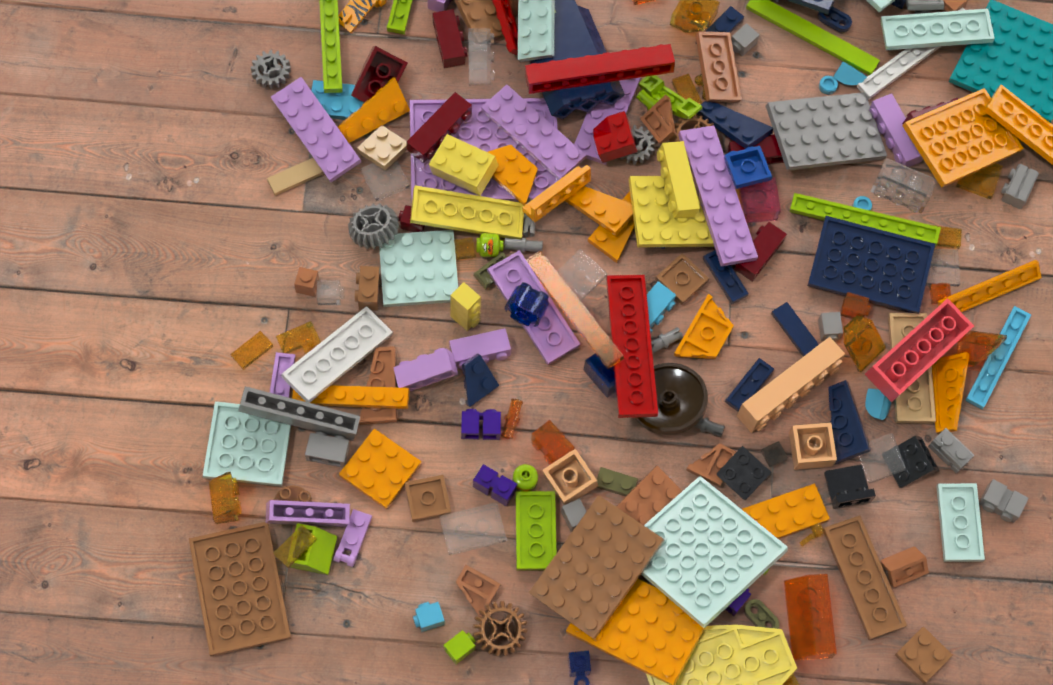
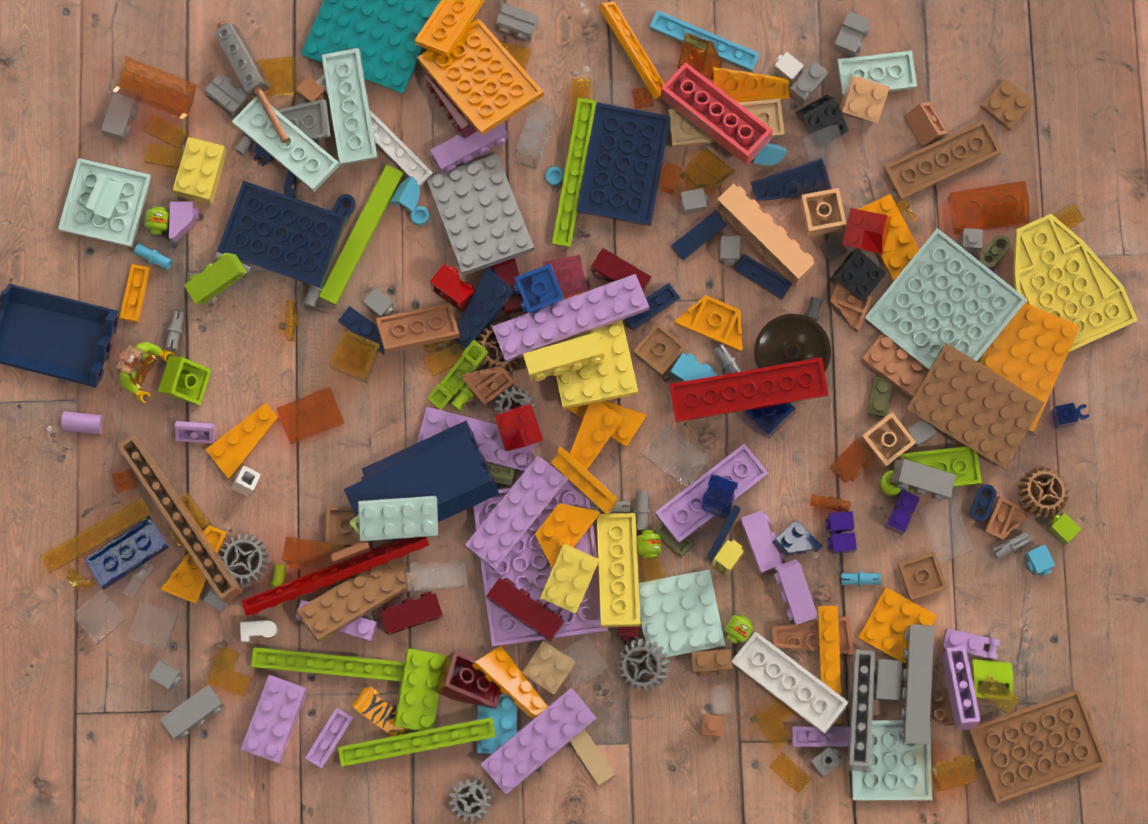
camera: 90 degrees left, 10 degrees up
(256, 379) = (826, 761): none -> light grey brick
(317, 473) = (917, 684): none -> light grey brick
(364, 32) = (417, 693): none -> lime plate
(397, 317) = (738, 628): none -> lime head
(432, 438) = (861, 578): none -> medium azure pin
(448, 591) = (1011, 545): none -> light grey axle
(497, 566) = (982, 503): none -> dark blue plate
(499, 318) = (723, 533): none -> dark blue tile
(523, 502) = (923, 479): none -> light grey brick
(572, 124) = (501, 474): none -> olive plate
(575, 310) = (714, 450): clear orange tile -> none
(599, 68) = (449, 446): red brick -> none
(755, 96) = (450, 287): none -> red slope
(774, 592) = (971, 240): none -> light grey brick
(778, 354) = (729, 250): none -> light grey brick
(790, 484) = (866, 231): none -> red slope
(848, 487) = (857, 177): black bracket -> none
(932, 500) = (864, 98): none -> light nougat brick
(969, 432) = (788, 67): none -> white brick

